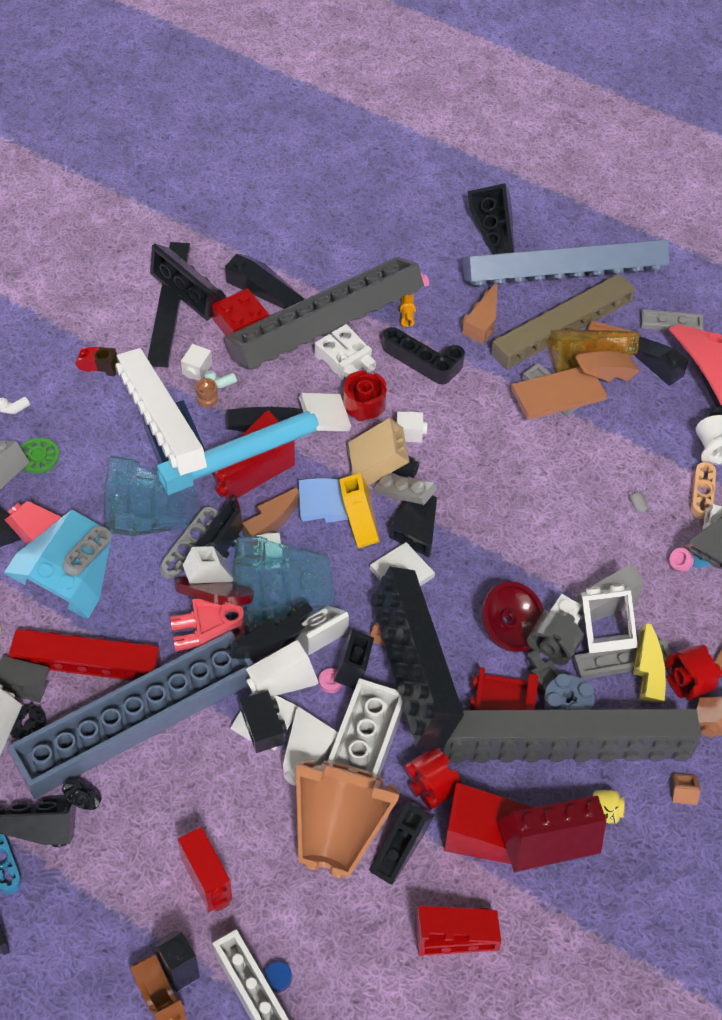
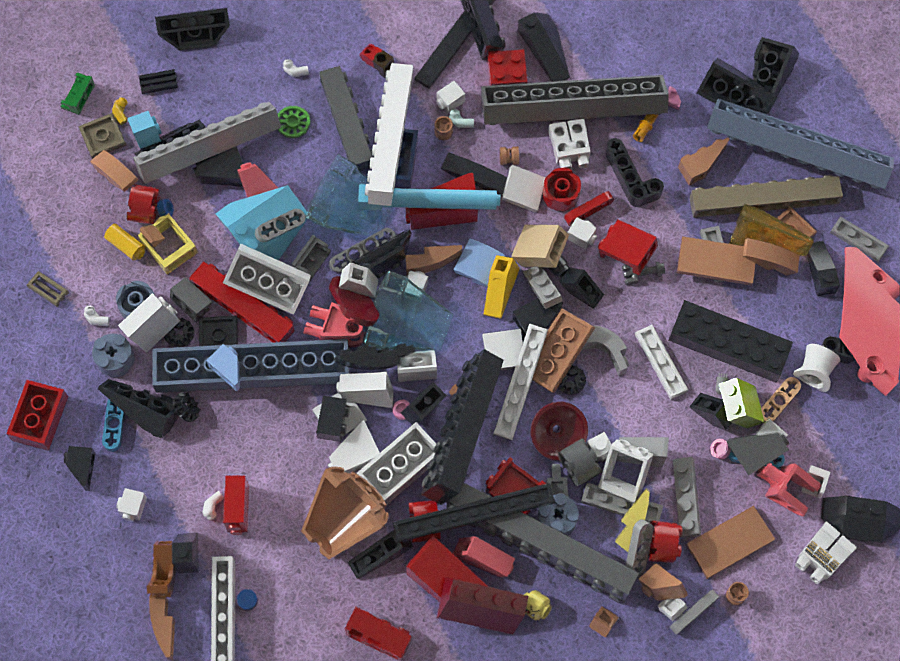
camera: 30 degrees right, 15 degrees up
(70, 695) = (218, 330): none -> black tile
(73, 939) = (131, 504): none -> white brick
(94, 423) = (345, 117): none -> dark grey brick
(102, 611) = (267, 279): none -> white brick
(109, 720) = (226, 365): none -> light blue slope
(137, 575) = (311, 256): none -> dark grey hinge
(171, 892) = (209, 505): none -> white arm
(290, 389) = (504, 155): none -> nougat wheel
(403, 399) = (589, 207): none -> red beam
(442, 590) = (520, 382): none -> white tile
(443, 473) = (582, 286): none -> black slope
(459, 242) = (733, 86): none -> black wedge
(460, 542) = (560, 349): none -> nougat tile
(464, 415) = (628, 245): none -> red panel
(483, 737) = (473, 512): none -> black tile
(485, 442) = (659, 269): none -> dark grey hinge
(494, 573) = (580, 381): none -> black gear
(495, 513) = (612, 345): none -> light grey arch
(520, 782) = (484, 556): none -> coral slope
(567, 509) = (661, 362): none -> white tile
(621, 457) = (730, 341): none -> black brick
(650, 526) = (712, 410): none -> black slope
(672, 682) = (641, 534): none -> light grey beam
(675, 502) = (741, 403): none -> lime brick
(679, 617) = (687, 496): none -> light grey plate

